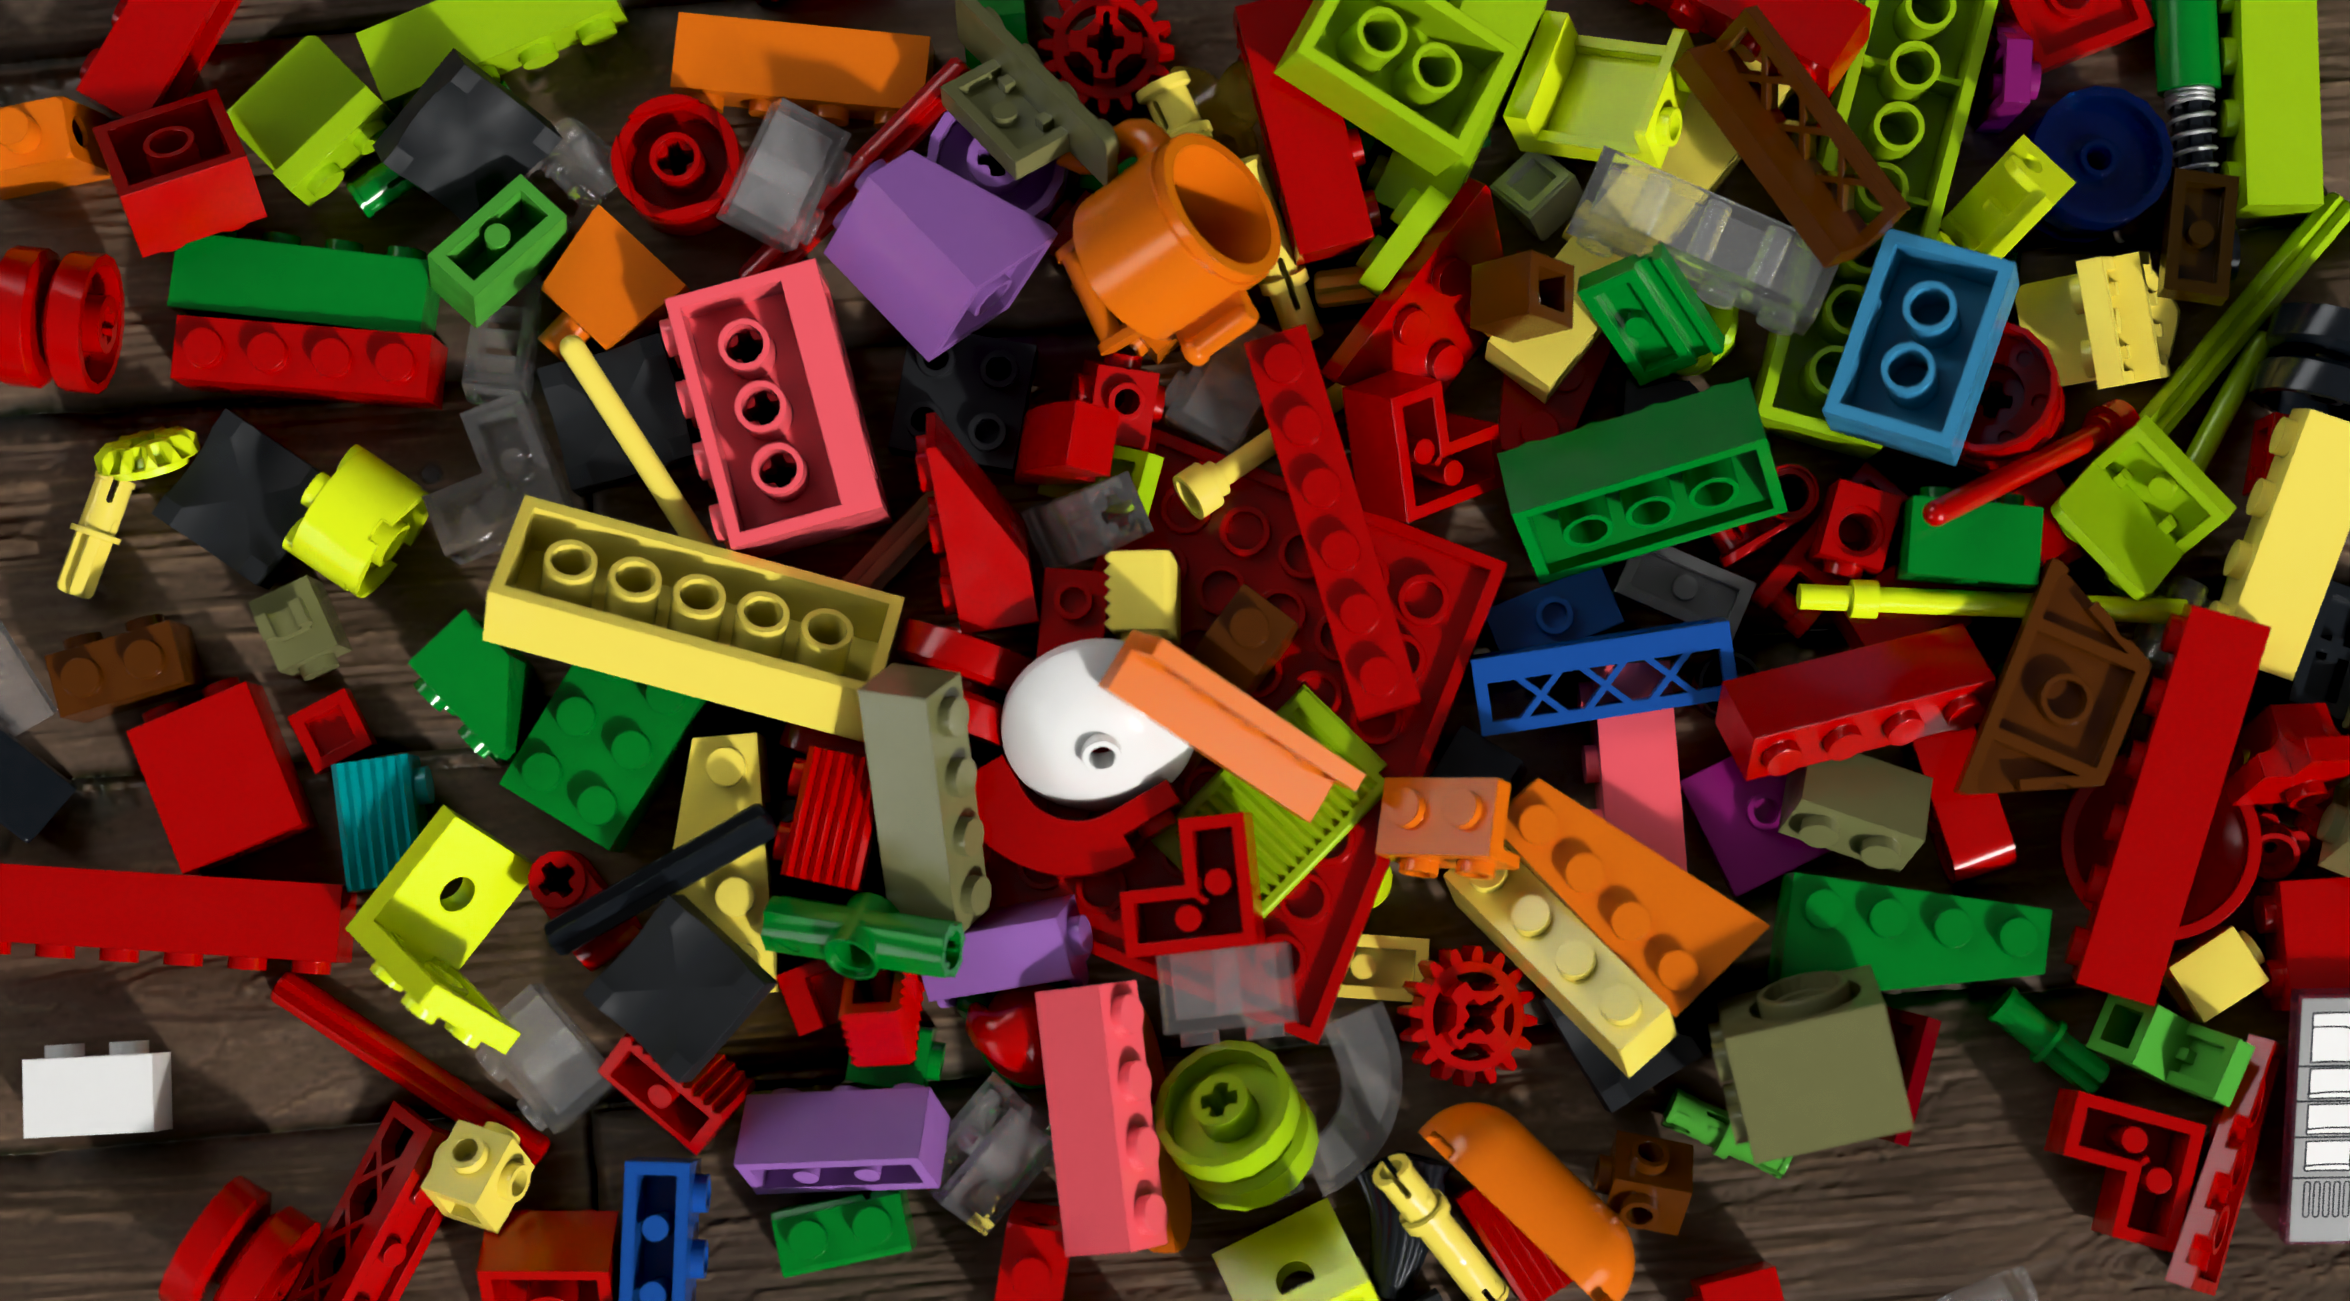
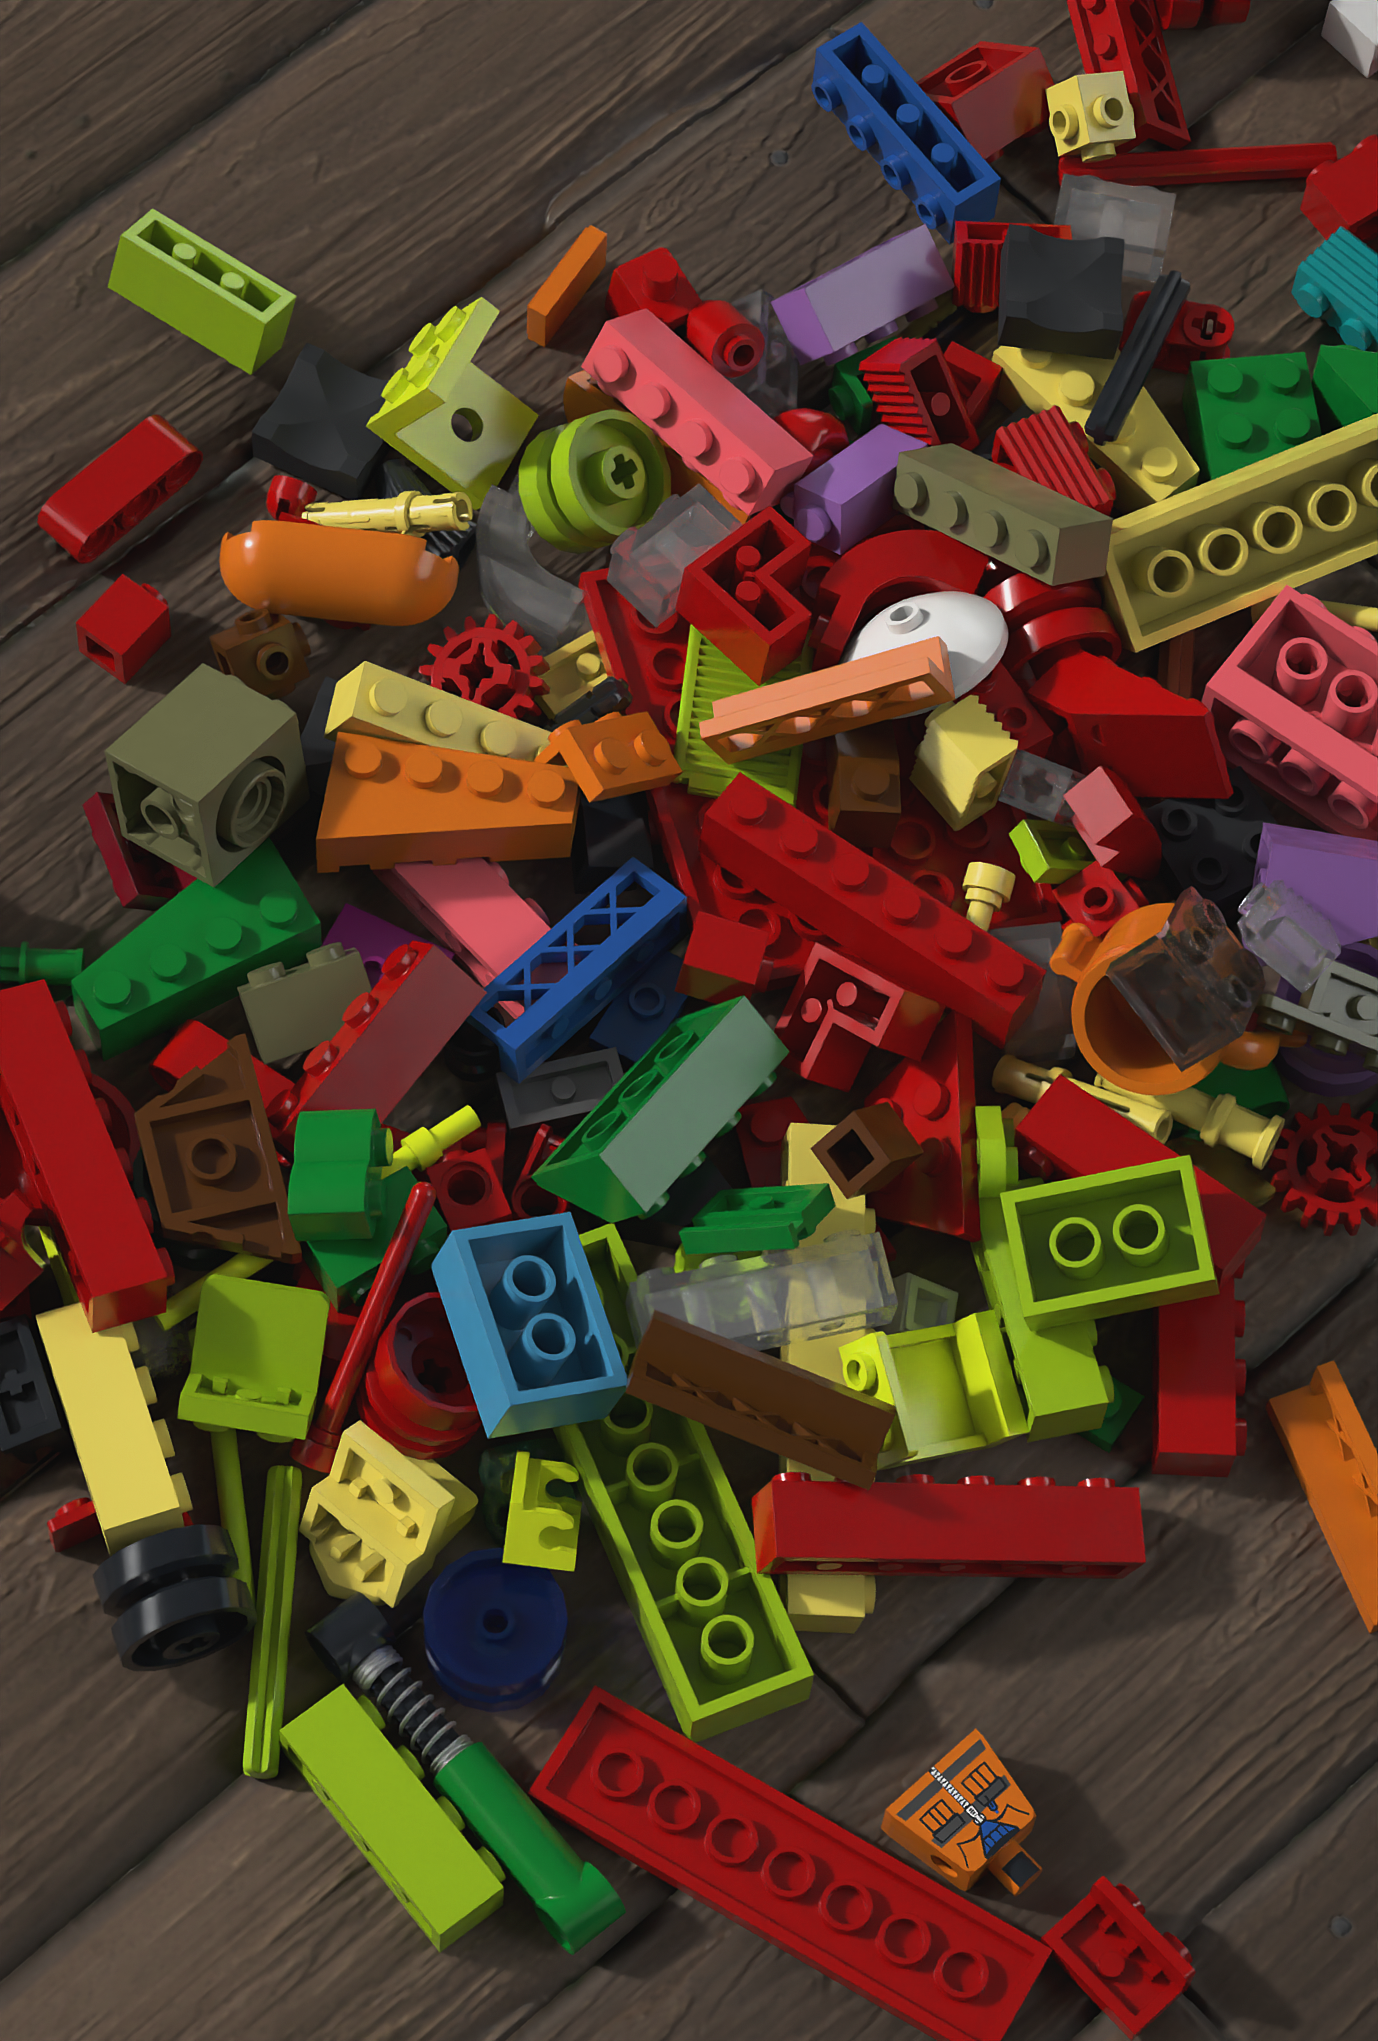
camera: 135 degrees right, 20 degrees down
(427, 939) = (1263, 221): neon yellow bracket -> none
(843, 1230) = (813, 244): green brick -> none
(863, 936) = (964, 409): green piece -> none
(1016, 1175) = (724, 337): none -> red brick
(1034, 195) = (1288, 934): none -> clear brick
(1165, 180) = (1191, 981): none -> clear smoke bracket
(1413, 910) = (605, 698): none -> black axle
(1492, 567) = (724, 960): none -> red brick
(1983, 593) = (337, 1174): none -> green brick
(2006, 76) = (622, 1645): magenta wing -> none
(2198, 236) = (367, 1611): dark brown plate -> none

